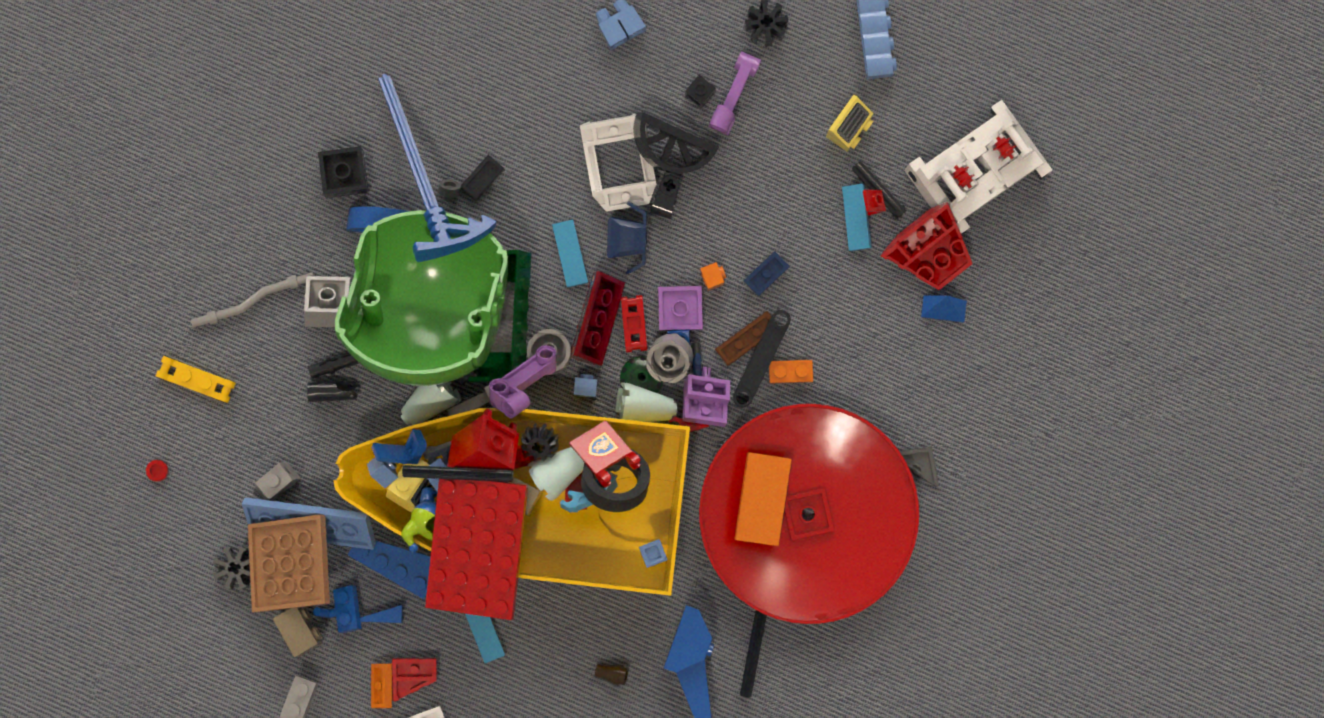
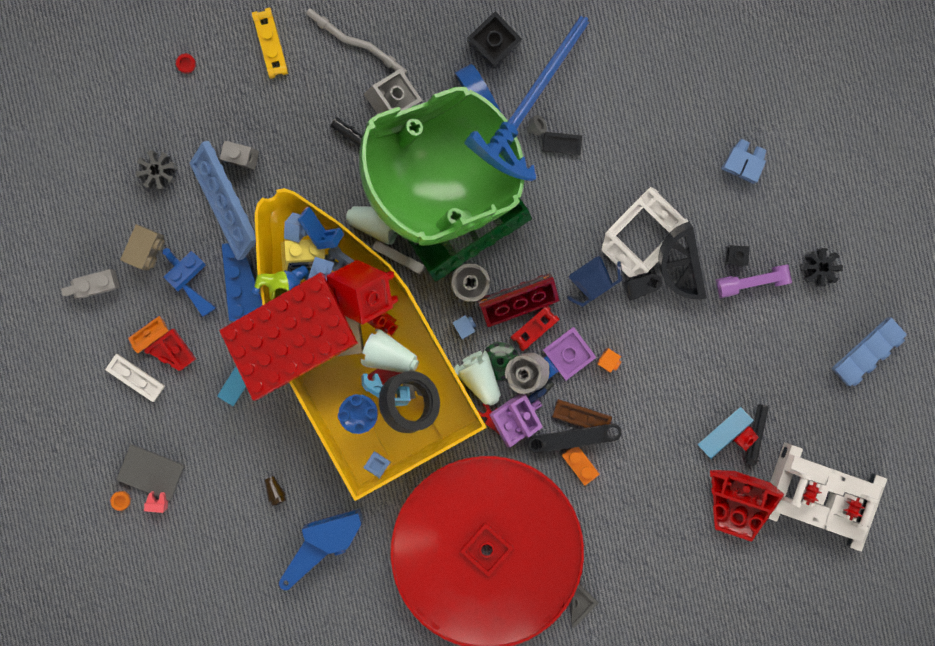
camera: 60 degrees right, 5 degrees up
(288, 563) = (183, 207): medium nougat plate -> none
(331, 391) = (330, 146): black piece -> none
(457, 473) = (330, 285): black axle -> none
(508, 394) = (416, 277): medium lavender piece -> none
(539, 442) = (397, 327): black gear -> none
(570, 253) = (552, 245): dark azure tile -> none
(593, 534) = (358, 414): none -> blue dish
(601, 449) = (423, 376): flag -> none
(753, 654) = (358, 581): black axle -> none
(762, 499) = (473, 512): orange tile -> none
(766, 274) = (638, 397): dark blue plate -> none
(850, 123) = (790, 381): slope -> none
(944, 308) = (704, 541): blue slope -> none

